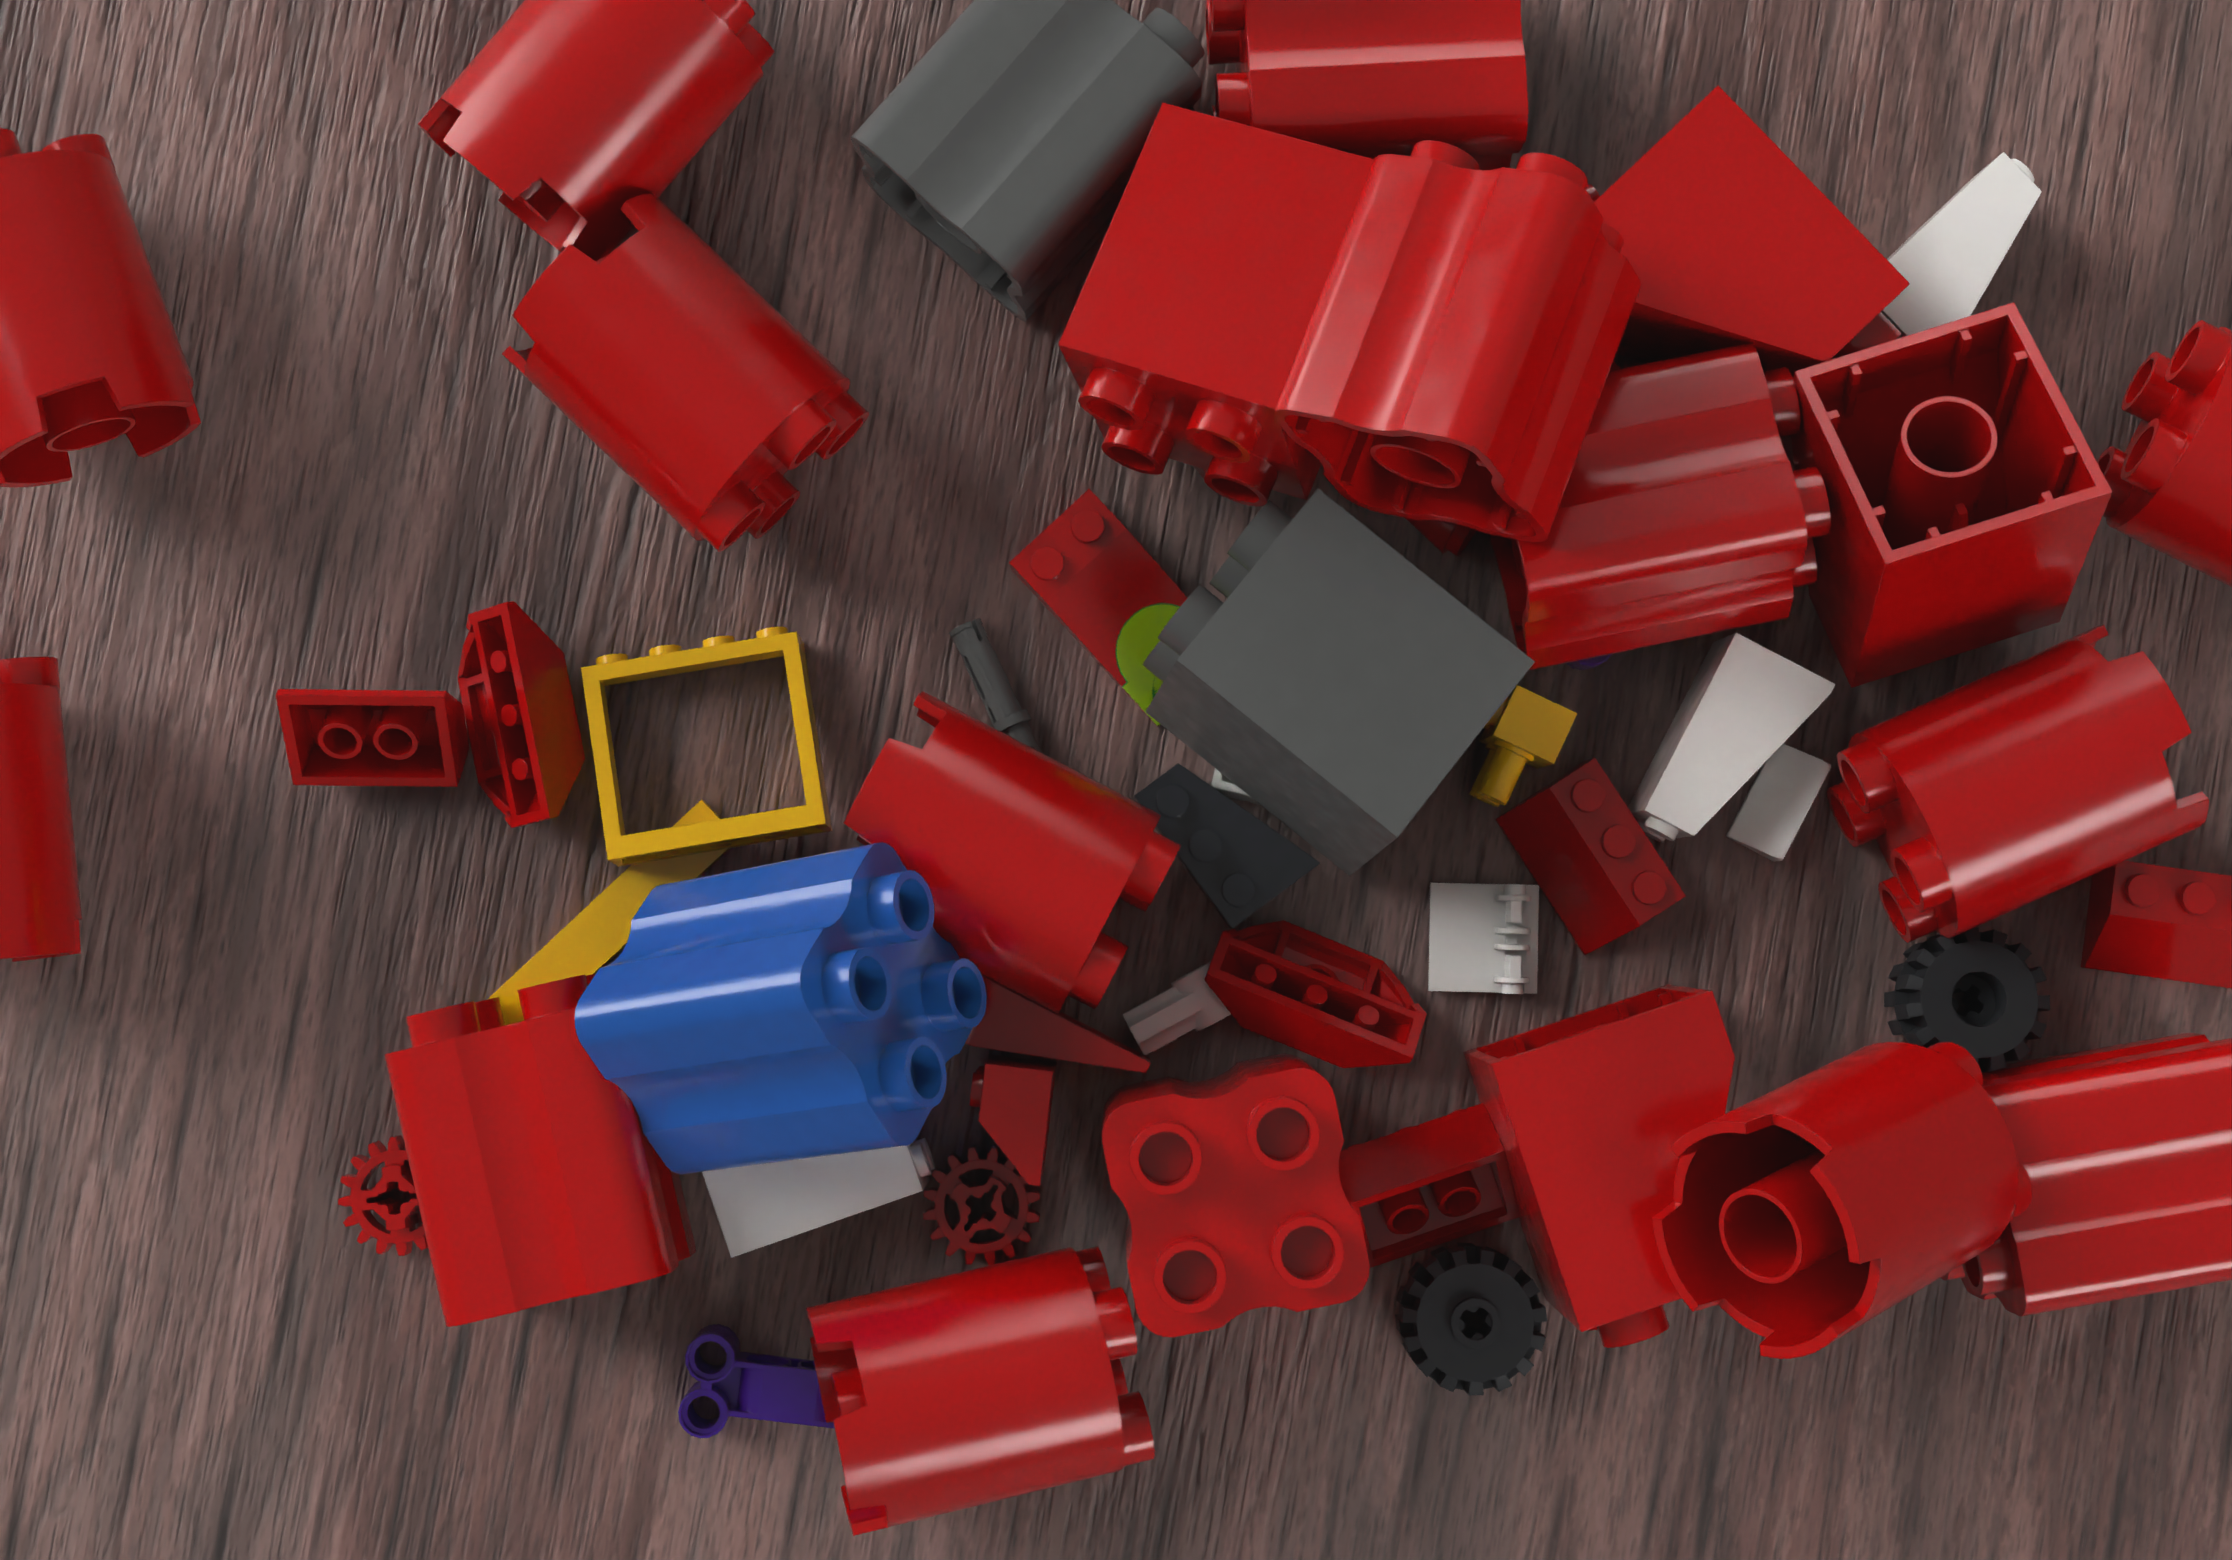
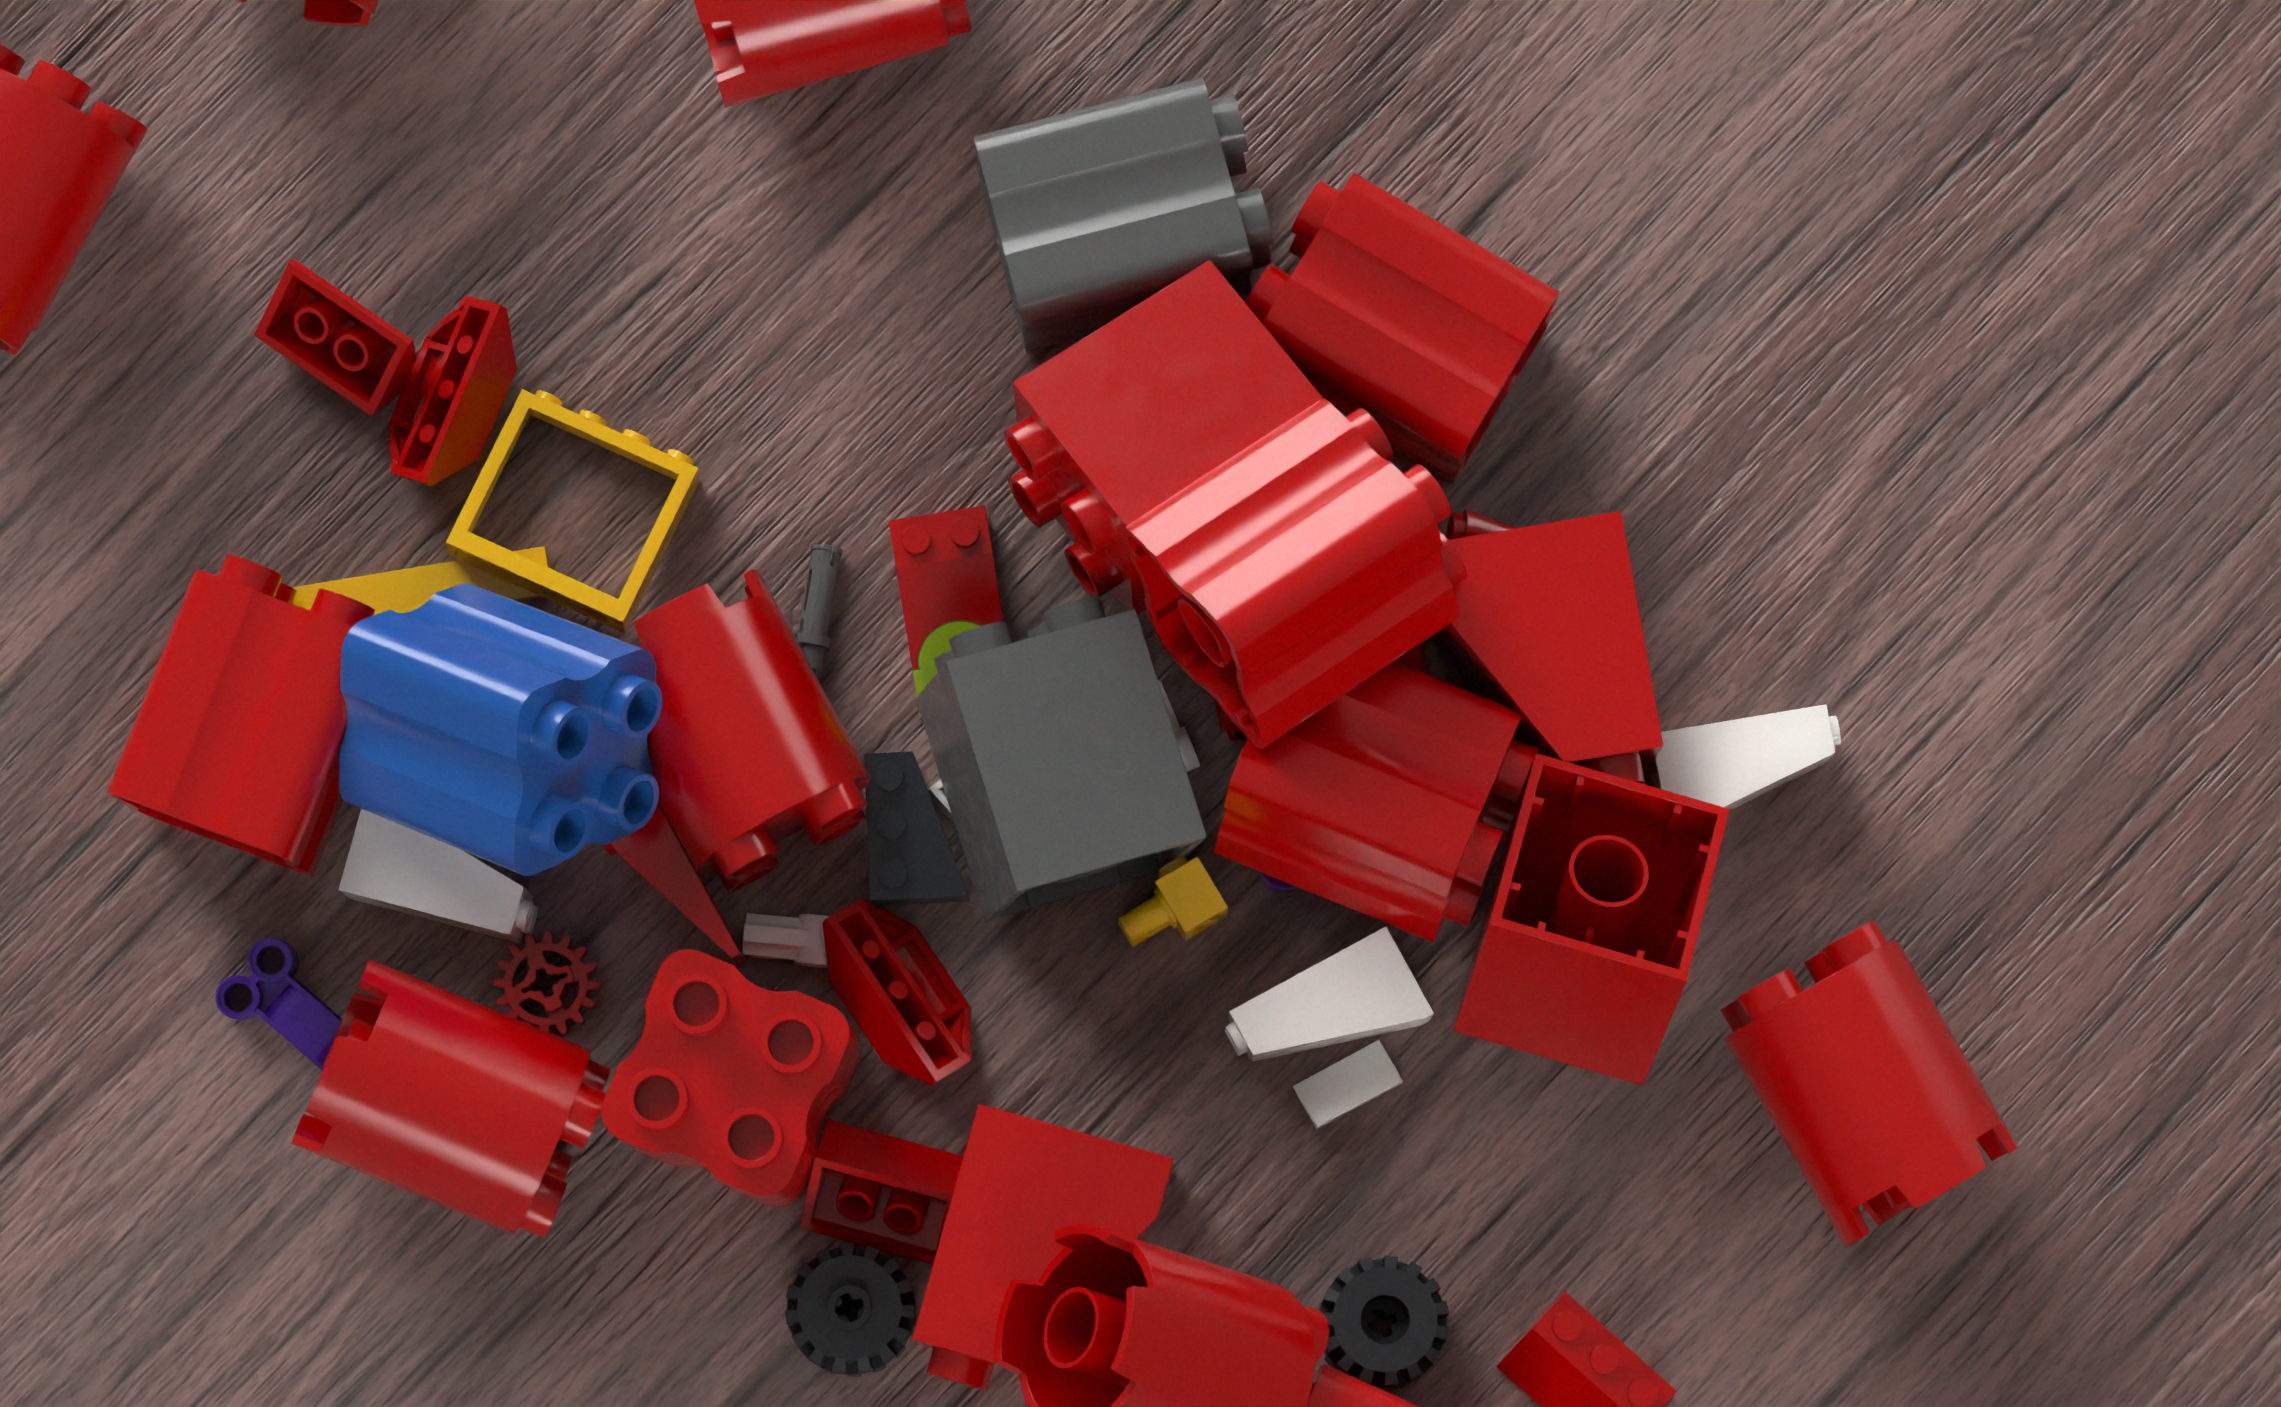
camera: 35 degrees right, 5 degrees down
(399, 1217) = (114, 705): red gear -> none
(684, 375) = (741, 228): red brick -> none
(1016, 1109) = (620, 926): red slope -> none
(1483, 938) = (1056, 1039): white hinge -> none
(1590, 857) = (1175, 1029): red slope -> none
(2015, 785) = (1514, 1177): red brick -> none

